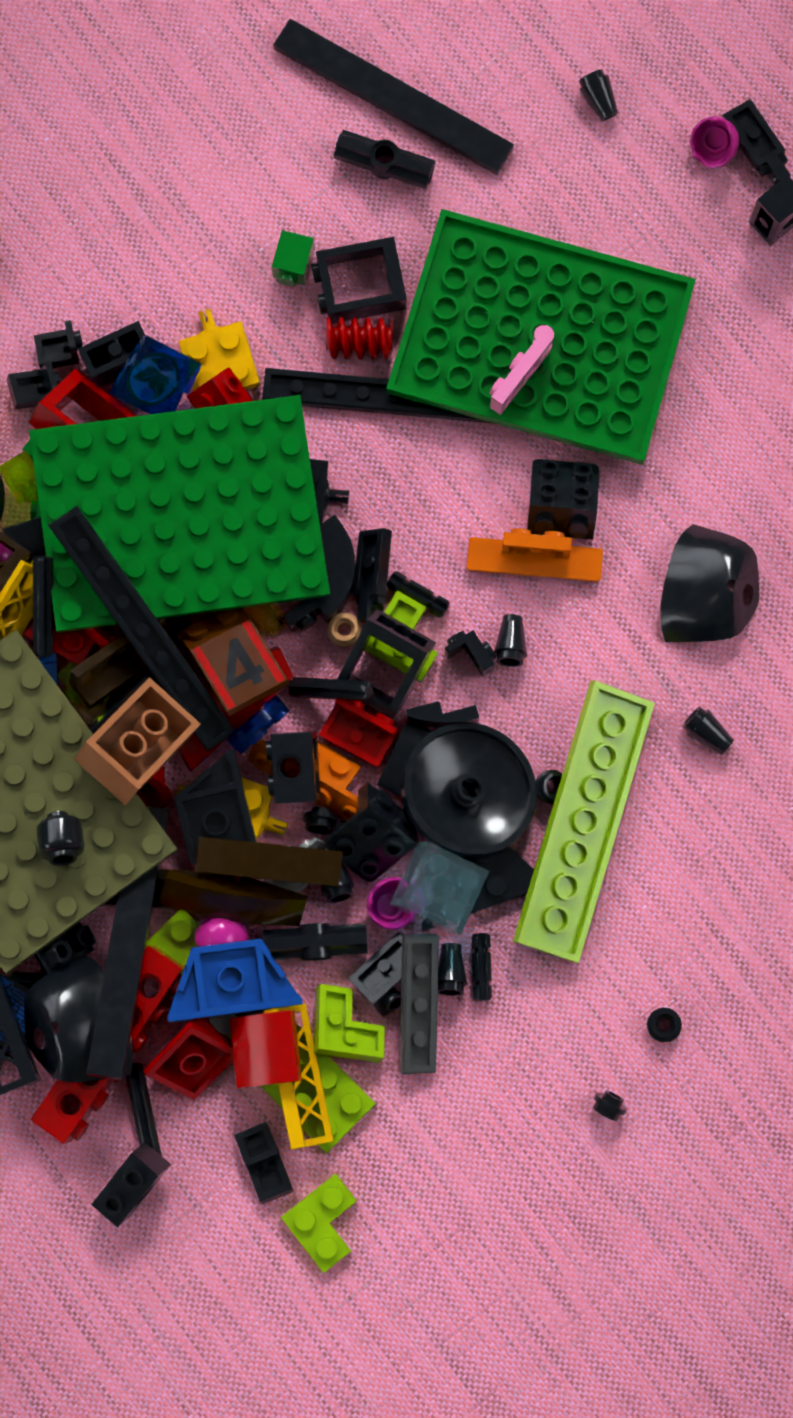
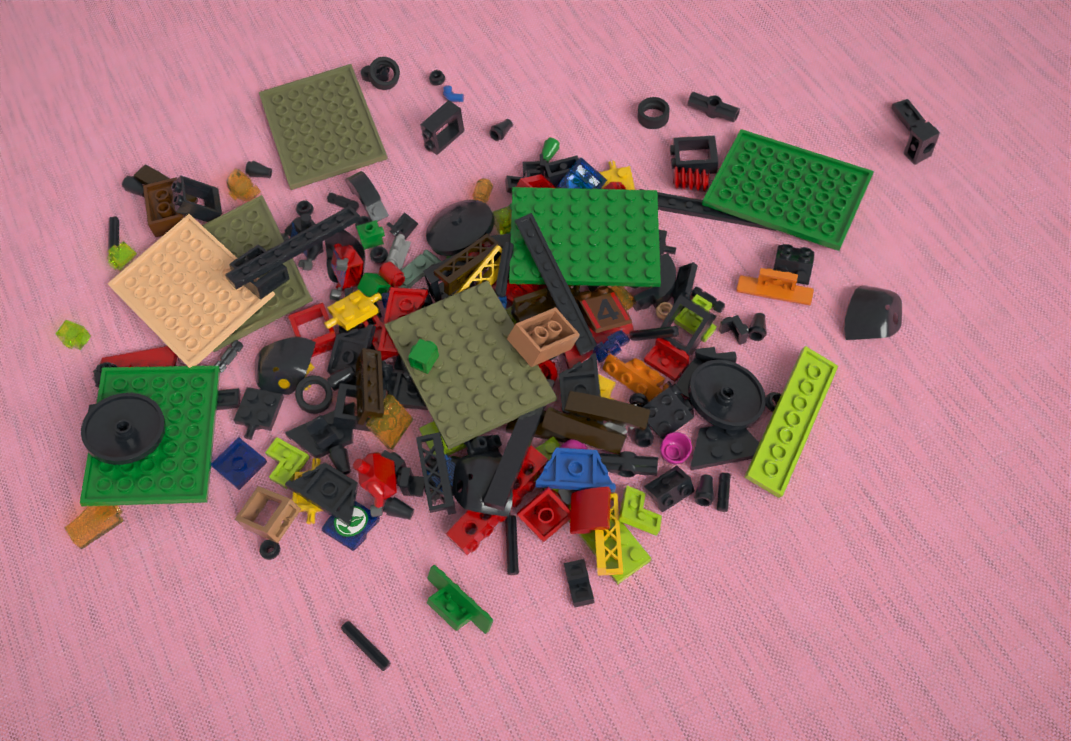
camera: 15 degrees right, 20 degrees down
(60, 838) = (492, 377): black head -> none
(66, 1235) = (454, 604): none -> green bracket
(80, 298) = (550, 148): none -> green cone
(131, 1184) = (497, 579): black brick -> none
(263, 162) = (653, 122): none -> black tyre
(293, 258) = (661, 141): green brick -> none
(304, 748) = (628, 377): black brick -> none
(312, 1221) = (604, 621): lime plate -> none
(393, 96) = (722, 84): black tile -> none
(419, 1003) = (684, 503): dark grey tile -> none
(439, 887) = (704, 438): clear light blue brick -> none
(522, 369) = (777, 196): bright pink plate -> none
(599, 94) = (827, 90): black cone -> none
(609, 1105) = (795, 579): black plate -> none
(672, 1017) = (833, 533): black plate -> none
(707, 730) = (868, 384): black cone -> none
(714, 142) = (887, 113): dark pink hair -> none

